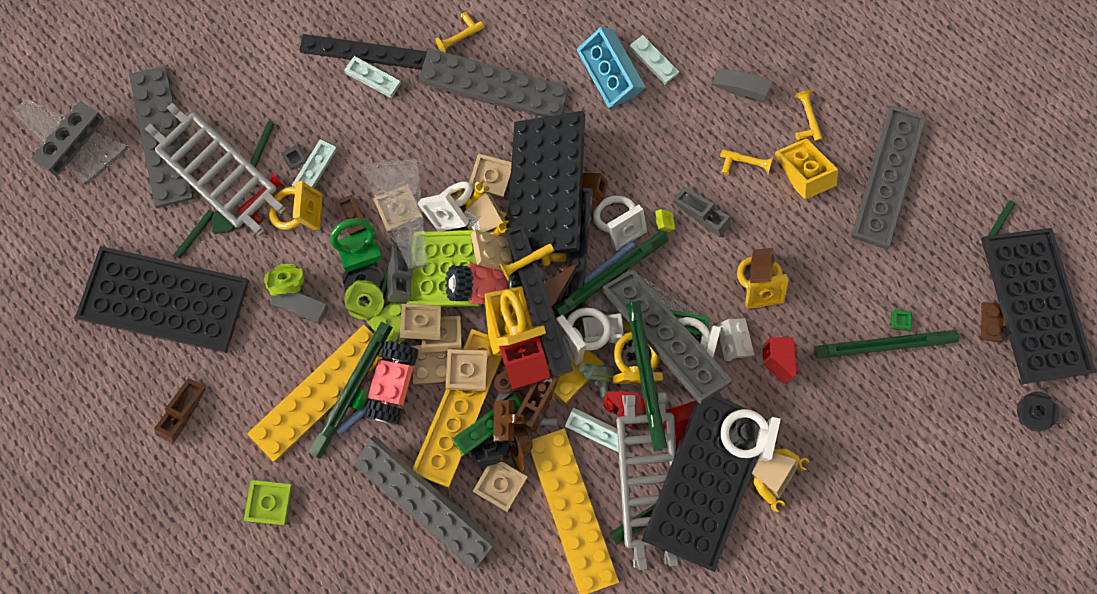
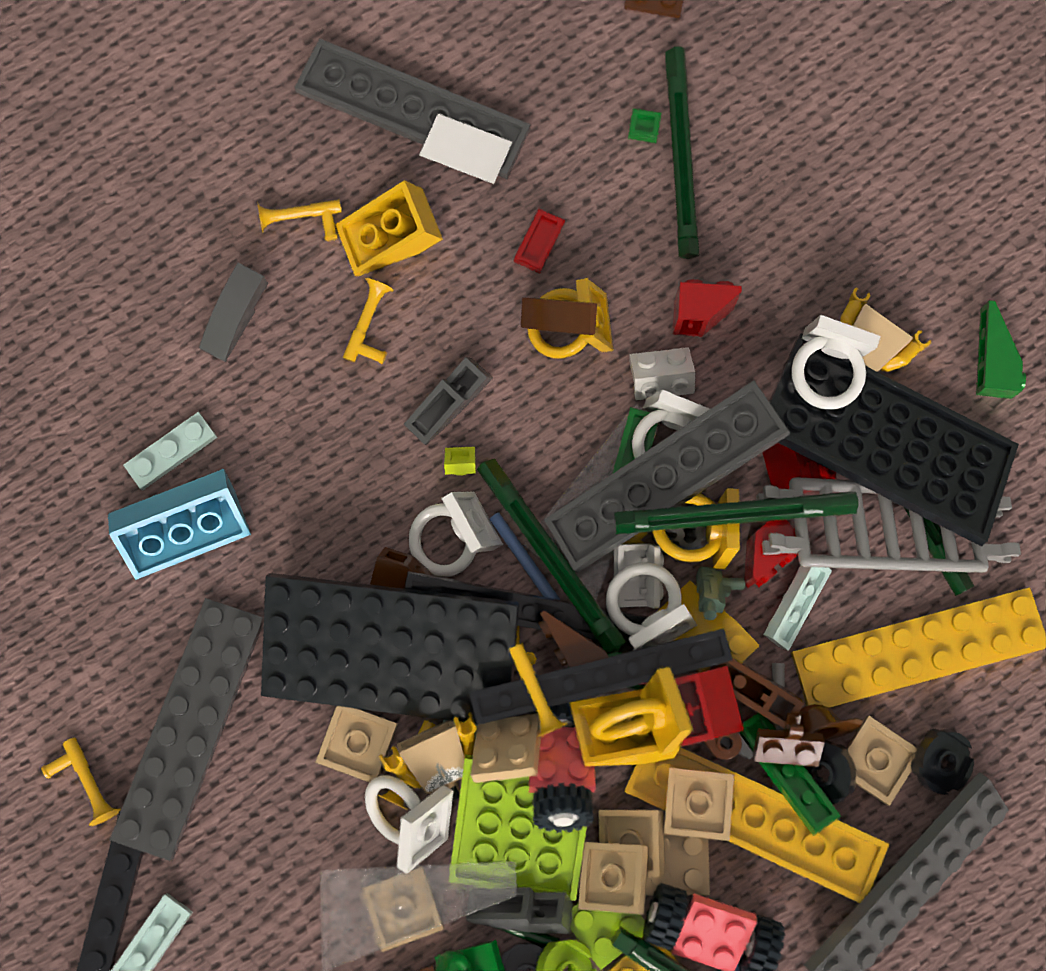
camera: 80 degrees left, 5 degrees up
(500, 513) = (929, 757): none -> black plate
(767, 558) = (998, 358): none -> green slope
(813, 259) = (539, 240): none -> red tile
(866, 208) = (465, 148): none -> white sticker

